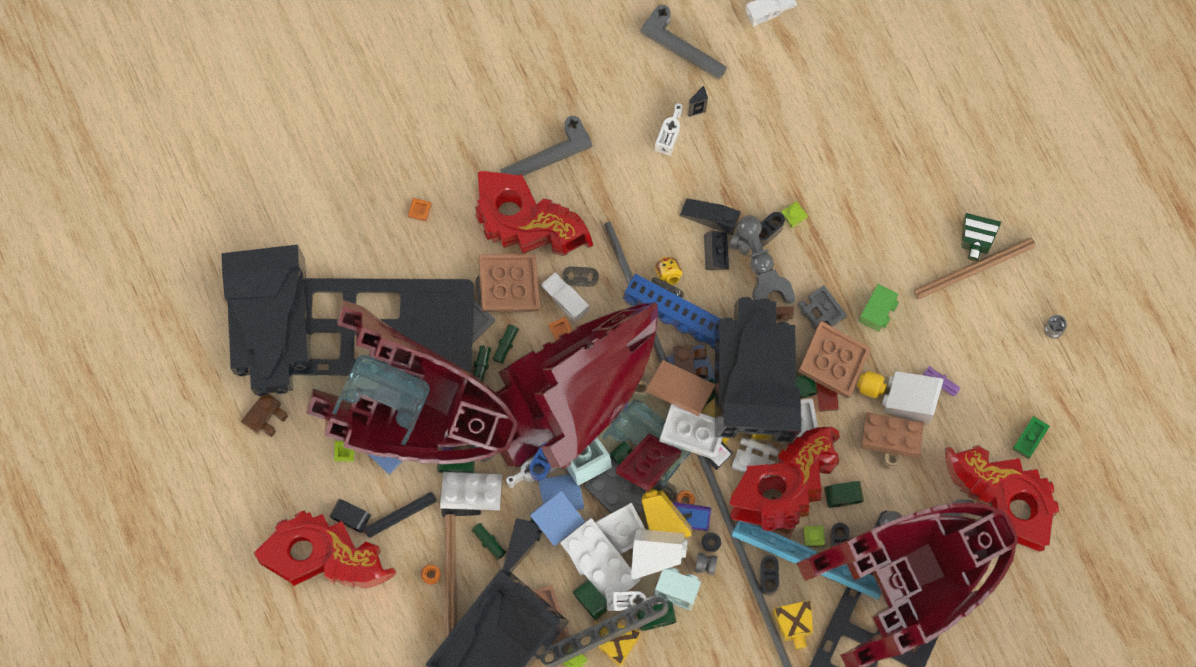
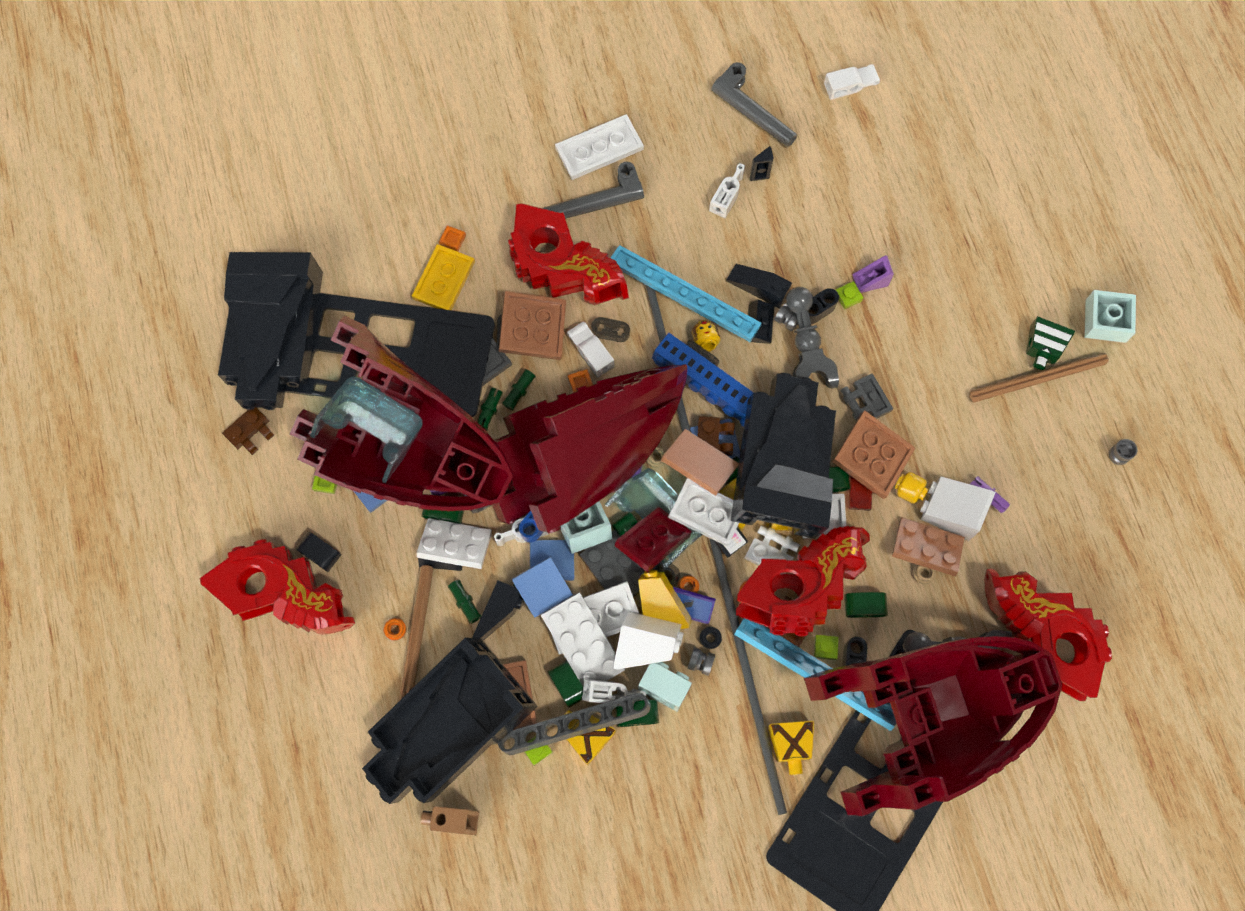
camera: 10 degrees right, 0 degrees up
(400, 515) = (373, 558): black axle -> none
(418, 249) = (443, 278): none -> yellow plate
(543, 103) = (599, 147): none -> white plate
(644, 234) = (686, 294): none -> medium azure plate
(769, 575) = (770, 685): black beam -> none
(784, 313) = (826, 397): reddish brown plate -> none
(814, 193) = (874, 276): none -> medium lavender slope
(878, 308) = (928, 406): bright green brick -> none
(1031, 203) = (1110, 316): none -> light aqua brick
(1031, 437) = (1083, 570): green plate -> none

